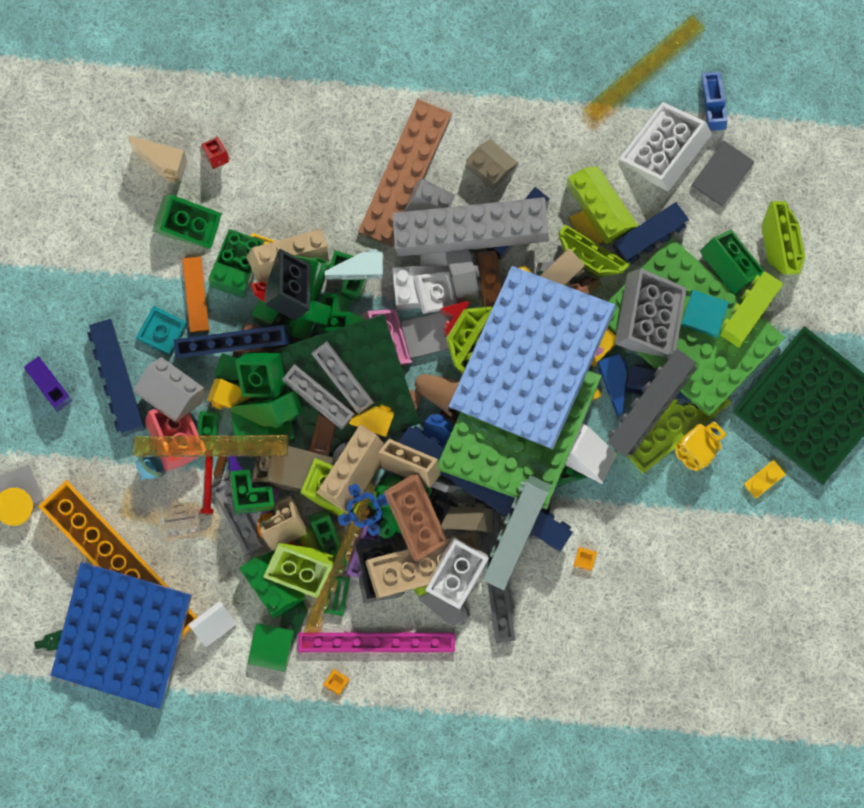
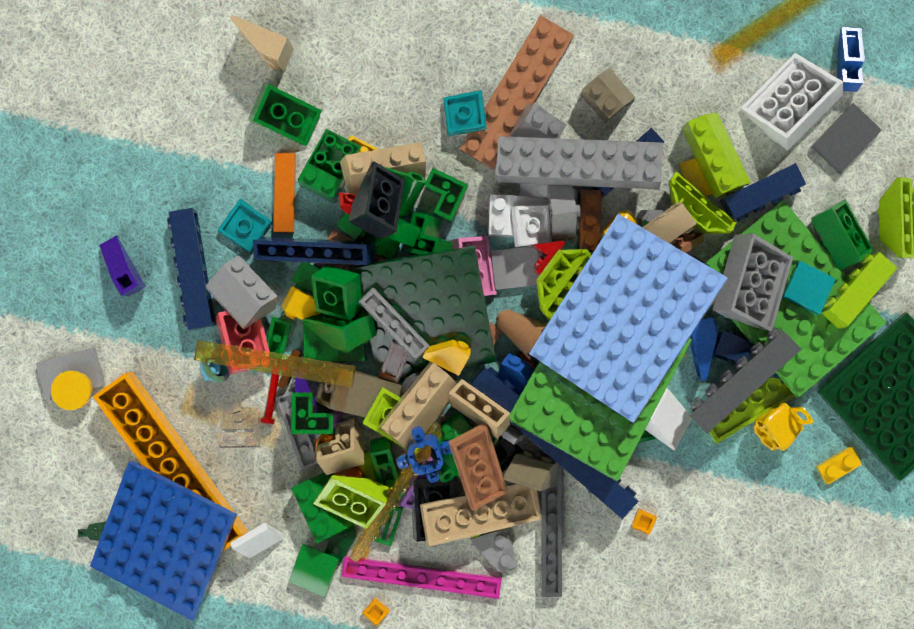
camera: 10 degrees right, 10 degrees up
(215, 152) = (323, 44): red slope -> none
(342, 377) = (422, 307): light grey tile -> none
(358, 197) = (465, 113): none -> teal tile
(362, 266) = (460, 190): light aqua slope -> none
(456, 572) = (513, 525): white slope -> none
(517, 532) = (582, 498): sand green brick -> none

